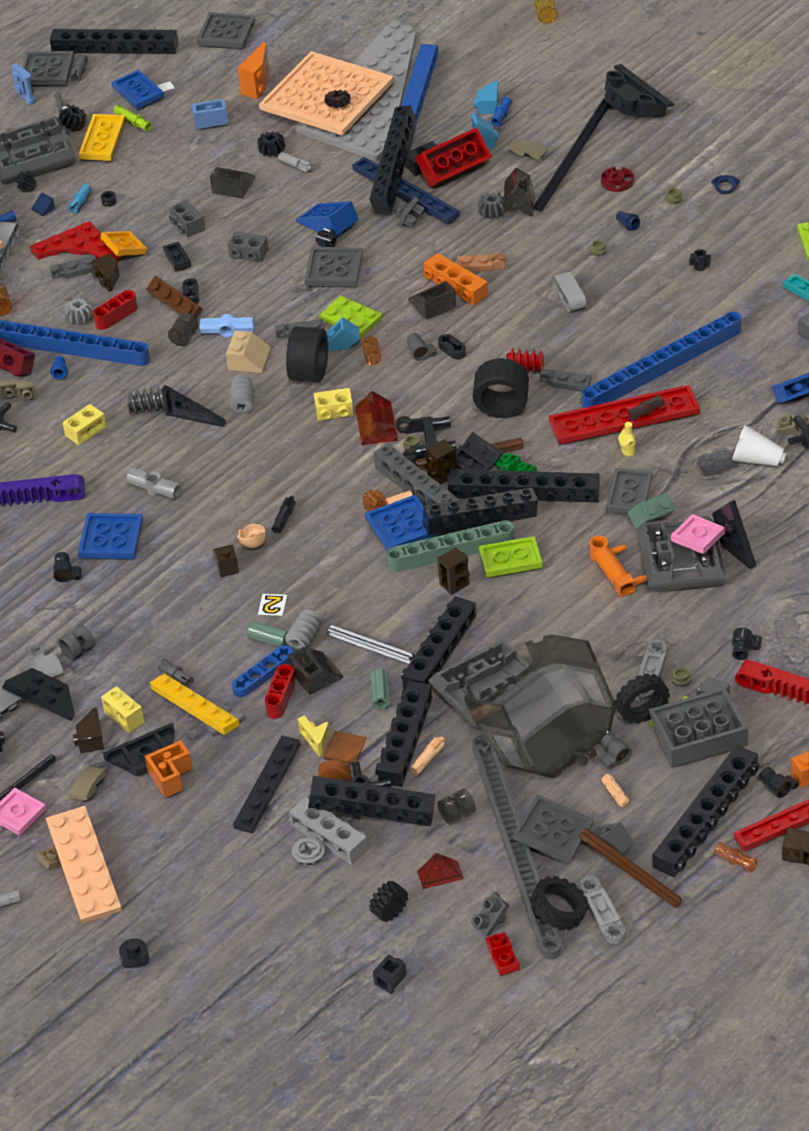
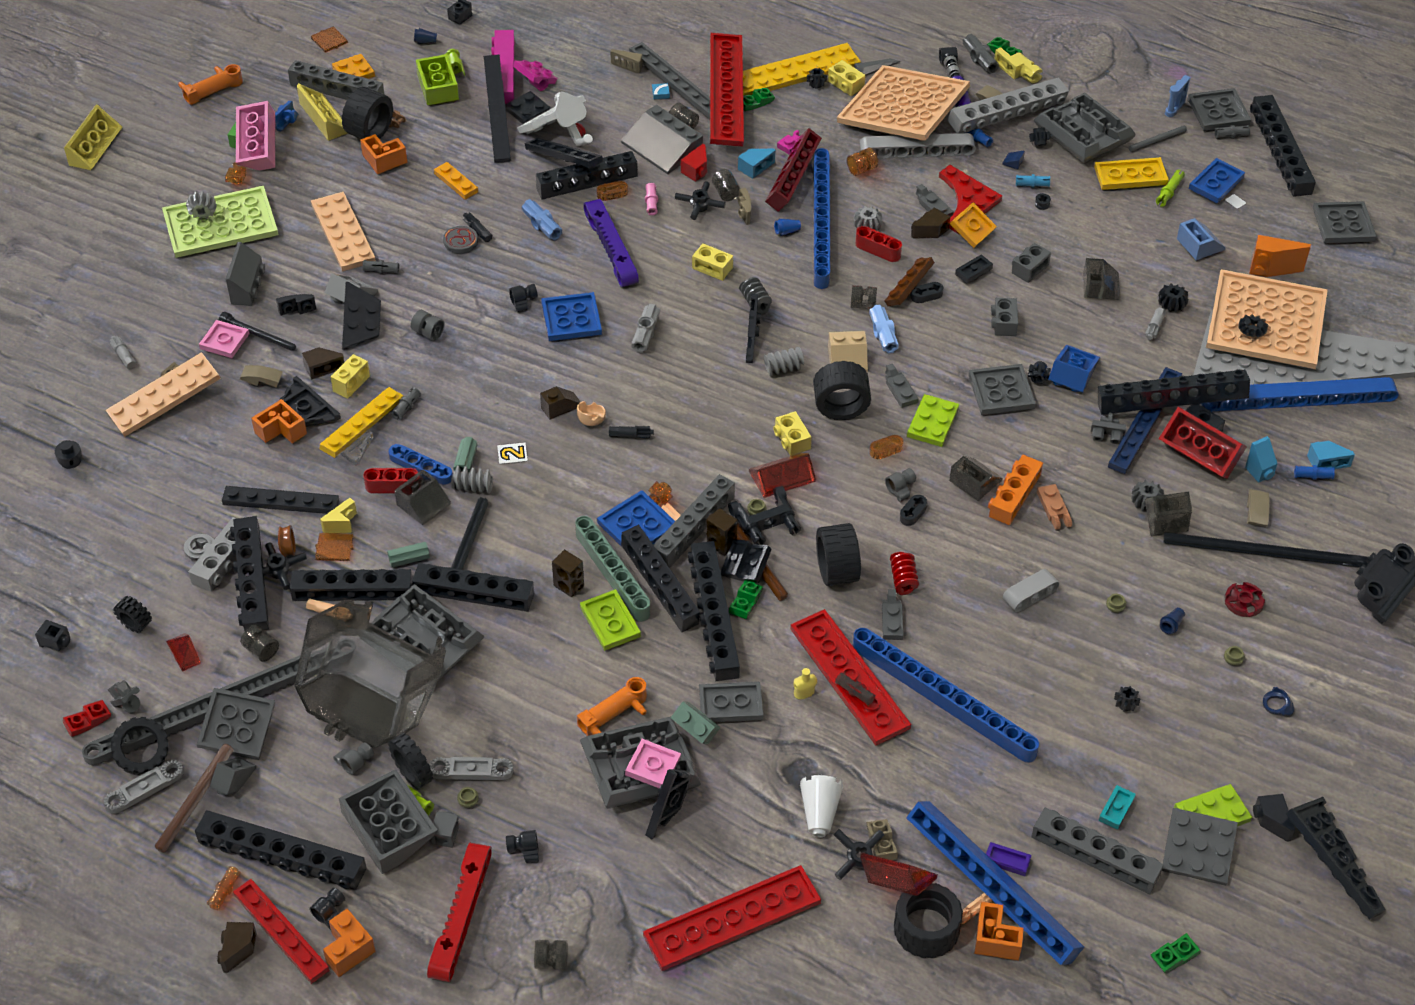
camera: 70 degrees right, 5 degrees up
(47, 664) = (399, 312): light grey piece -> none
(72, 117) = (1146, 143): black gear -> none
(342, 335) = (894, 417): dark azure slope -> none
(615, 790) = (302, 769): light nougat axle -> none

